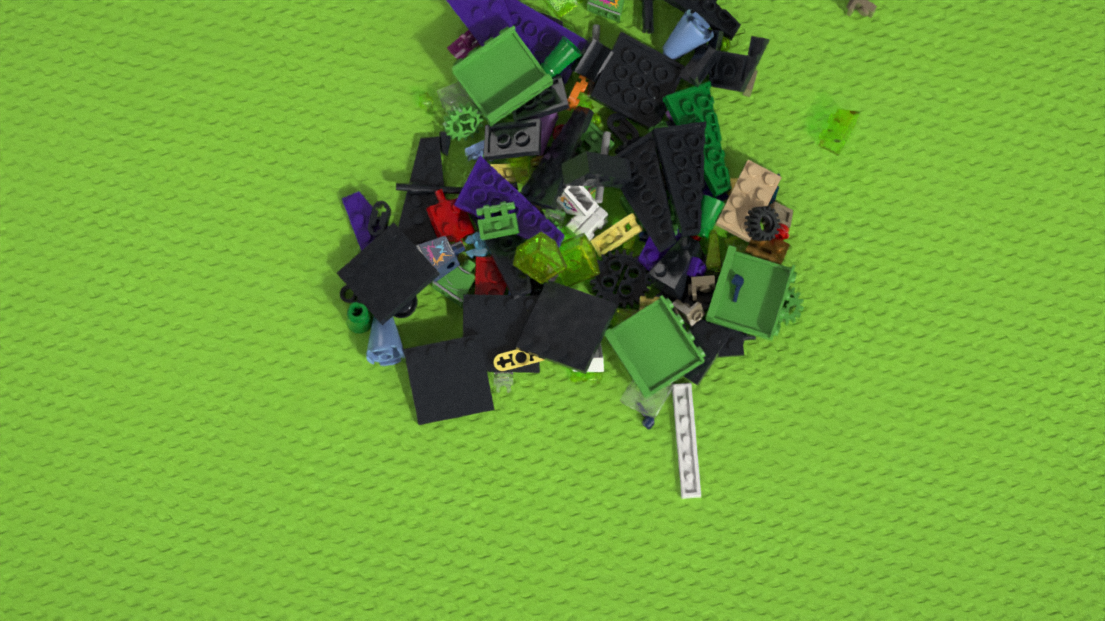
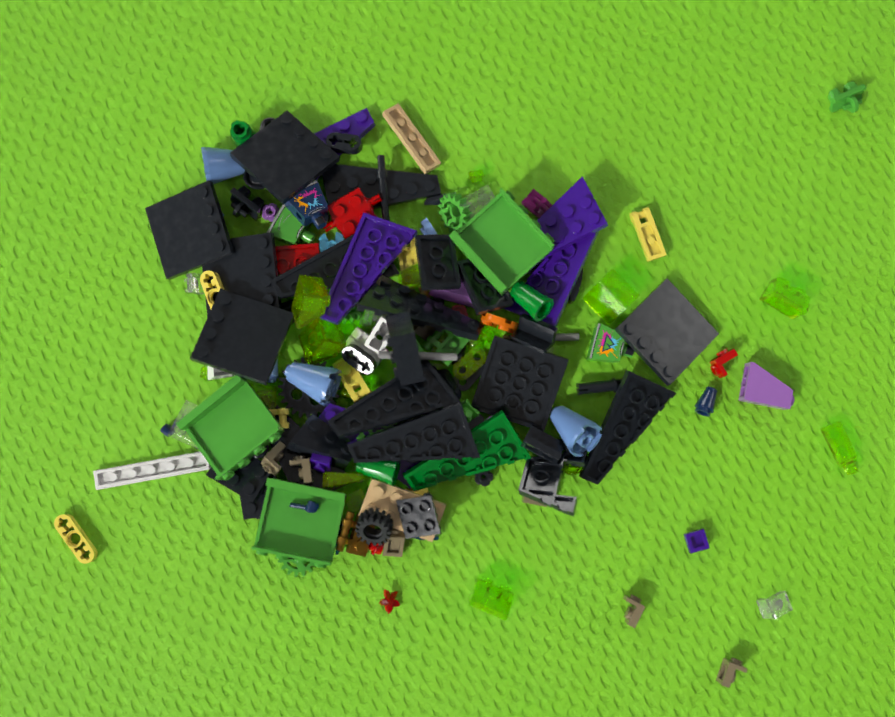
camera: 85 degrees right, 10 degrees up
(380, 158) = (411, 138): none -> tan plate
(428, 325) = (243, 205): none -> black hips
(438, 306) = (271, 207): none -> medium lavender plate
(497, 226) = (339, 255): bright green plate -> none
(601, 228) = (359, 359): none -> black beam
(613, 125) = (469, 363): none -> clear neon green plate
(616, 264) = (314, 380): none -> medium blue cone
(728, 127) = (486, 481): none -> black plate
(738, 532) = (72, 523): none -> light yellow beam
(756, 181) = (418, 516): none -> black hinge
(834, 225) = (389, 601): none -> red plant

